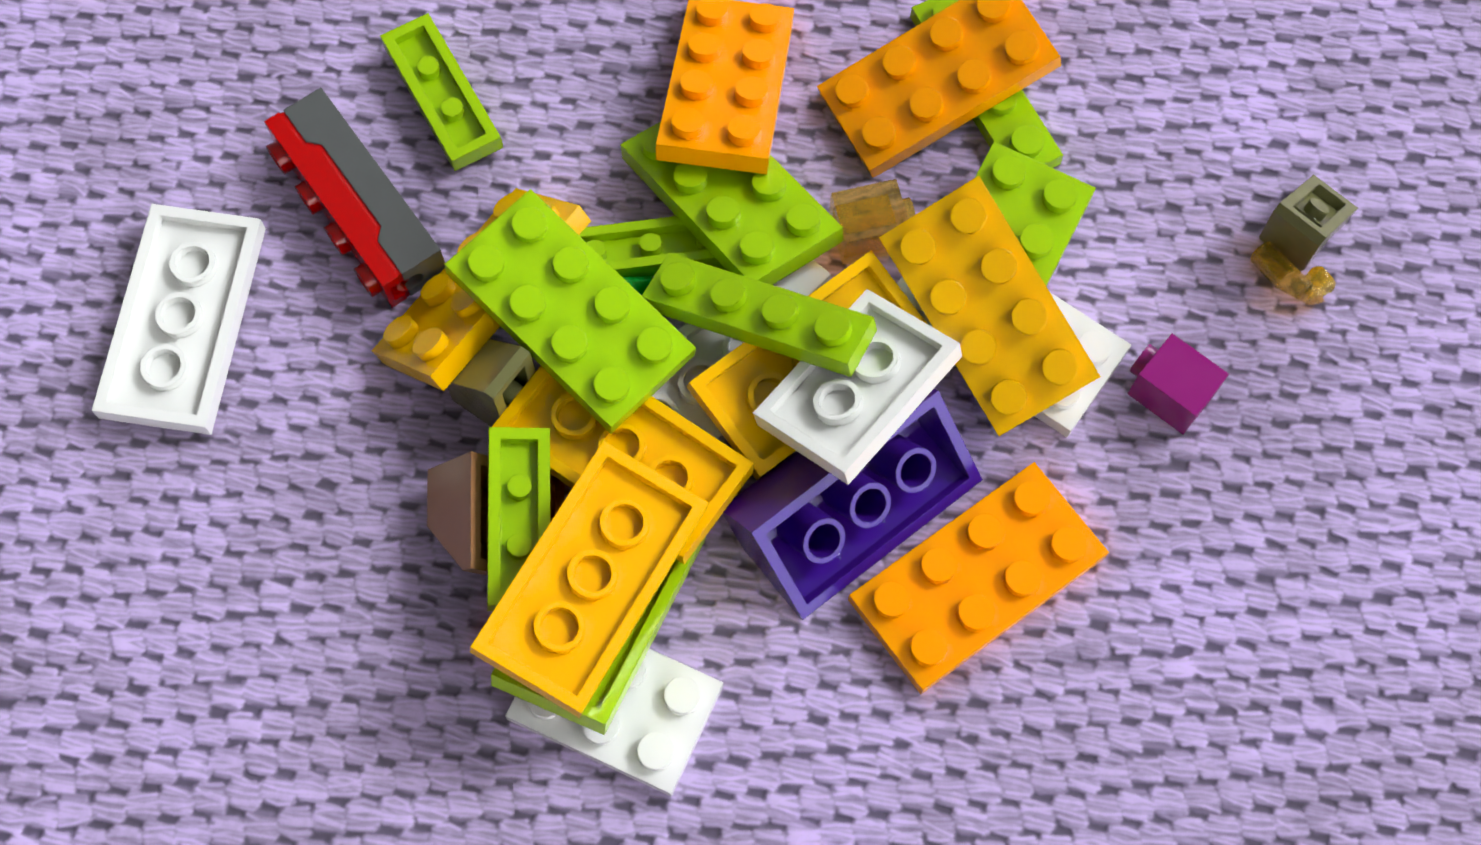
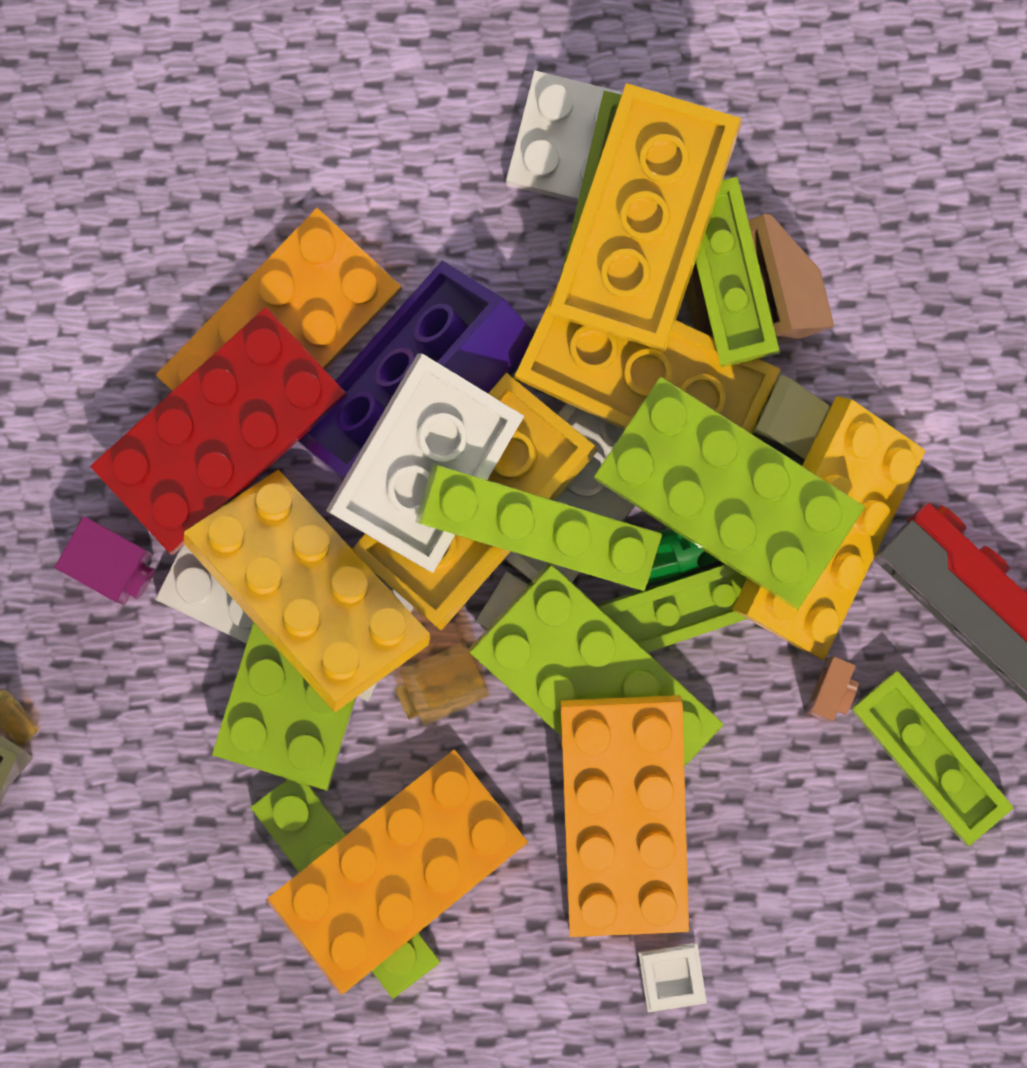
camera: 170 degrees right, 15 degrees up
(515, 156) = (833, 690): none -> nougat plate
(1052, 477) = (219, 429): none -> red plate

